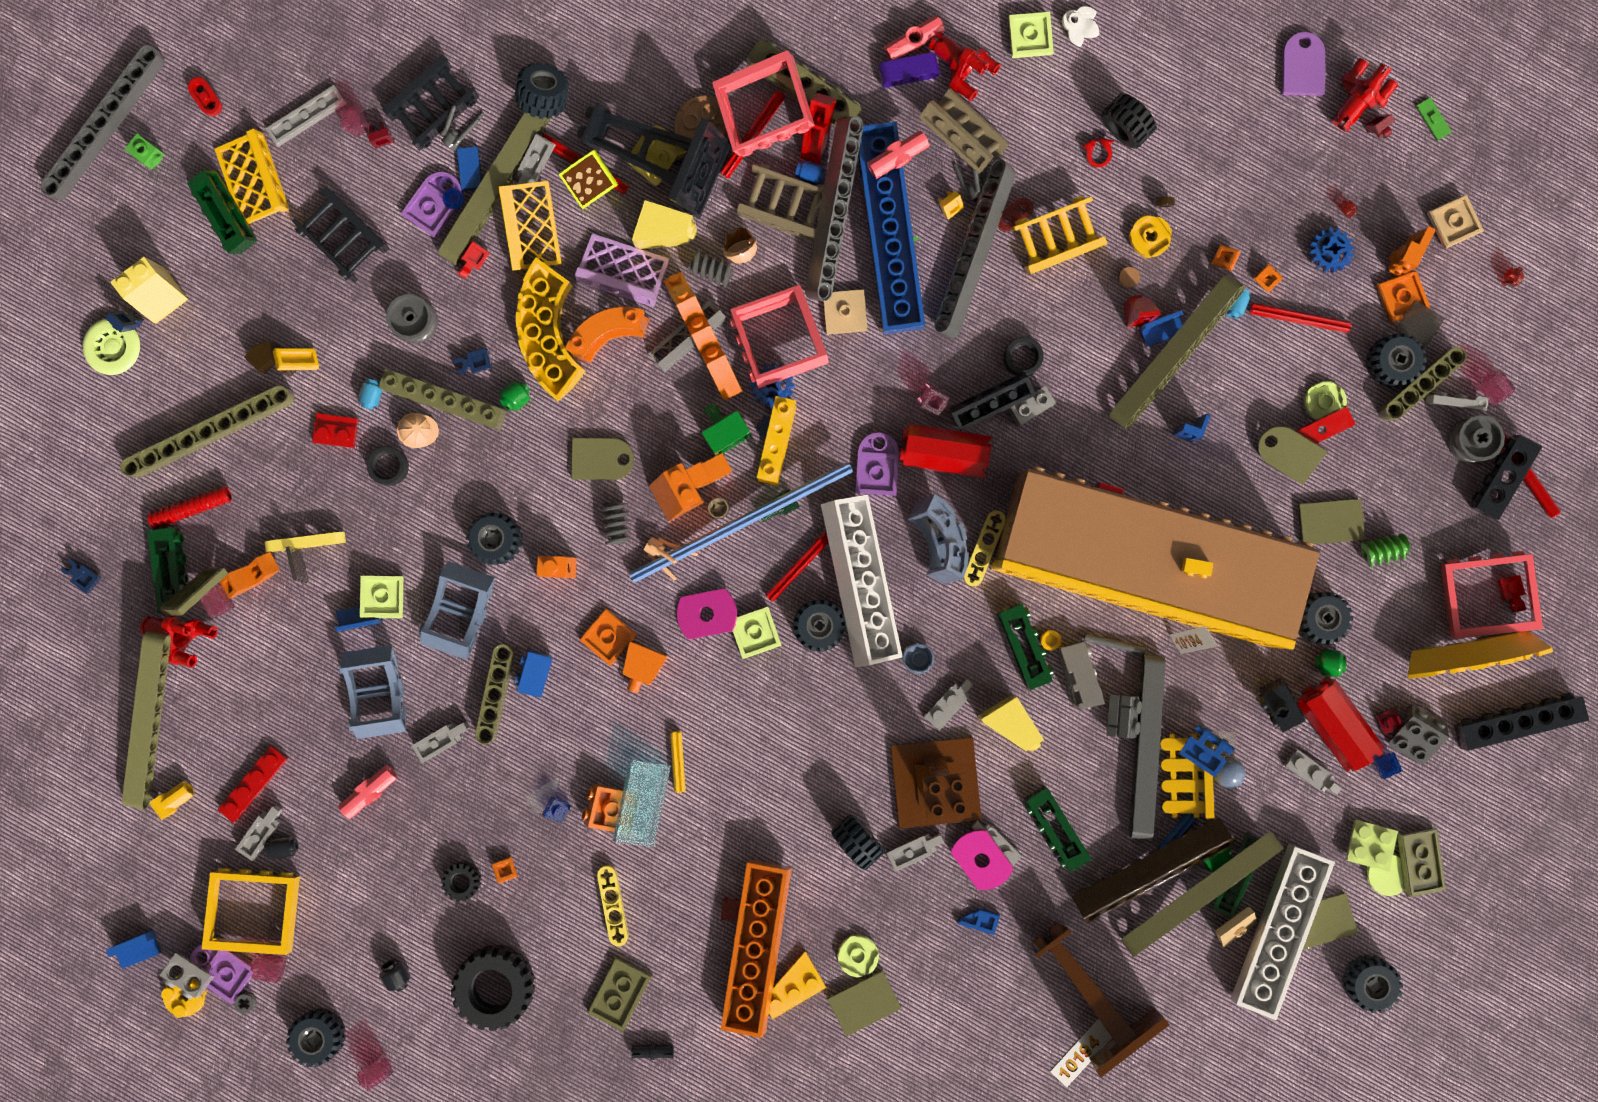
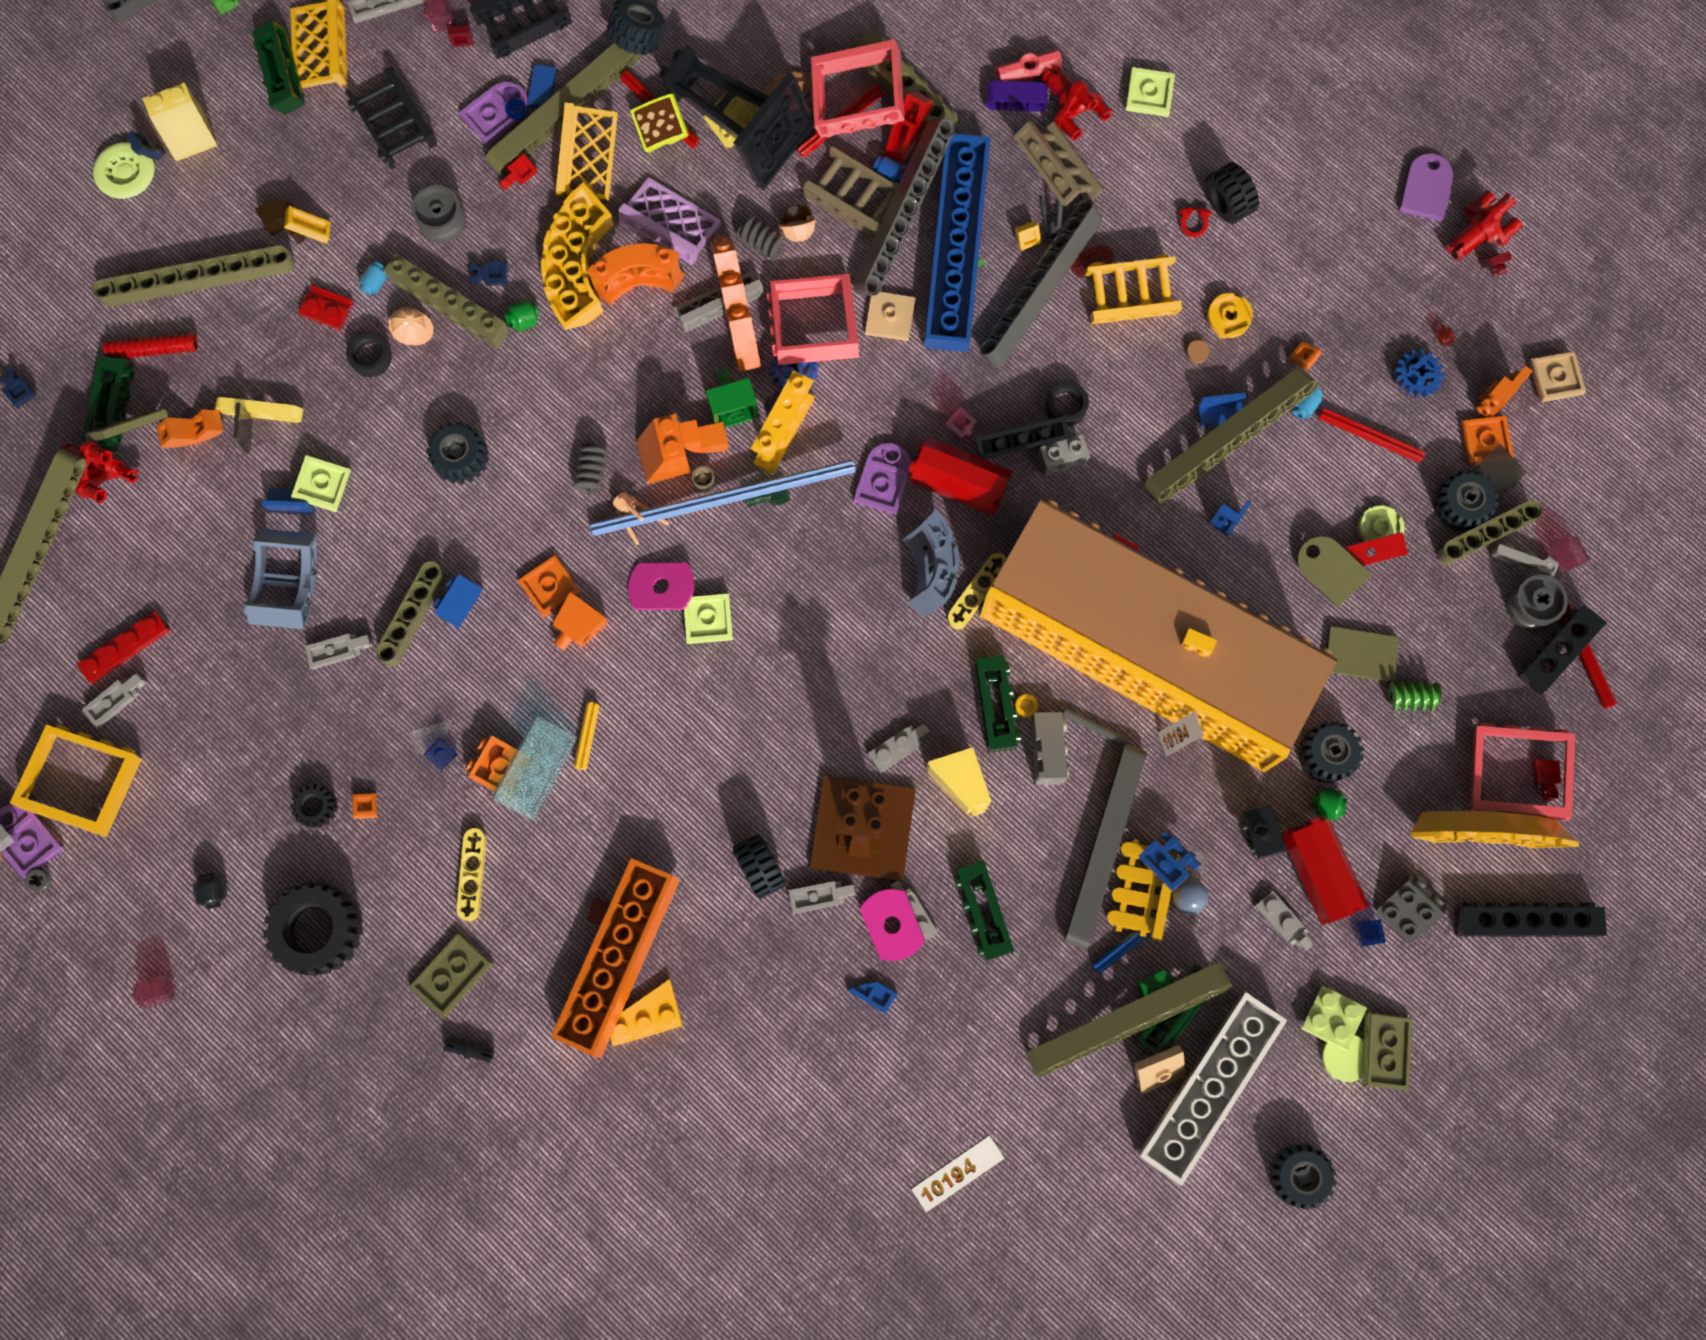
camera: 10 degrees right, 10 degrees down
(168, 802) = (24, 643): yellow piece -> none
(217, 602) = (146, 445): clear pink brick -> none
(268, 967) = (75, 846): clear pink brick -> none
(281, 847) = (131, 720): black brick -> none
(316, 1037) = (101, 936): black wheel -> none
(367, 792) = (243, 684): coral piece -> none
(453, 138) = (534, 53): dark grey plant -> none
(467, 578) = (415, 528): sand blue window -> none
(535, 160) = (611, 91): light grey hinge -> none
(556, 567) = (511, 497): orange torso -> none
(599, 459) = (592, 402): olive tile -> none
(662, 227) = (722, 185): light yellow slope -> none
(797, 567) = (779, 557): red axle -> none
(819, 625) = (778, 626): black wheel -> none
(858, 955) = (727, 999): yellowish green tile -> none
(861, 580) = (835, 588): white brick -> none
(864, 1003) = (720, 1054): olive tile -> none
(898, 154) = (983, 166): coral piece -> none
(918, 658) = (876, 687): sand blue hair -> none
(1083, 27) = (1206, 96): white plate -> none
(1123, 716) = (1086, 804): dark grey brick -> none
(1125, 1038) = (1002, 1154): reddish brown piece -> none
(1140, 311) = (1199, 385): red slope -> none
(1153, 869) = (1080, 981): dark brown brick -> none
(1162, 202) = (1252, 284): dark brown tile -> none
(1268, 277) = (1346, 386): orange tile -> none
(1332, 921) = (1267, 1094): olive tile -> none
(1388, 720) = (1381, 884): dark red tile -> none
(1433, 119) = (1554, 271): bright green piece -> none
(1513, 276) = (1609, 446): clear red plate -> none

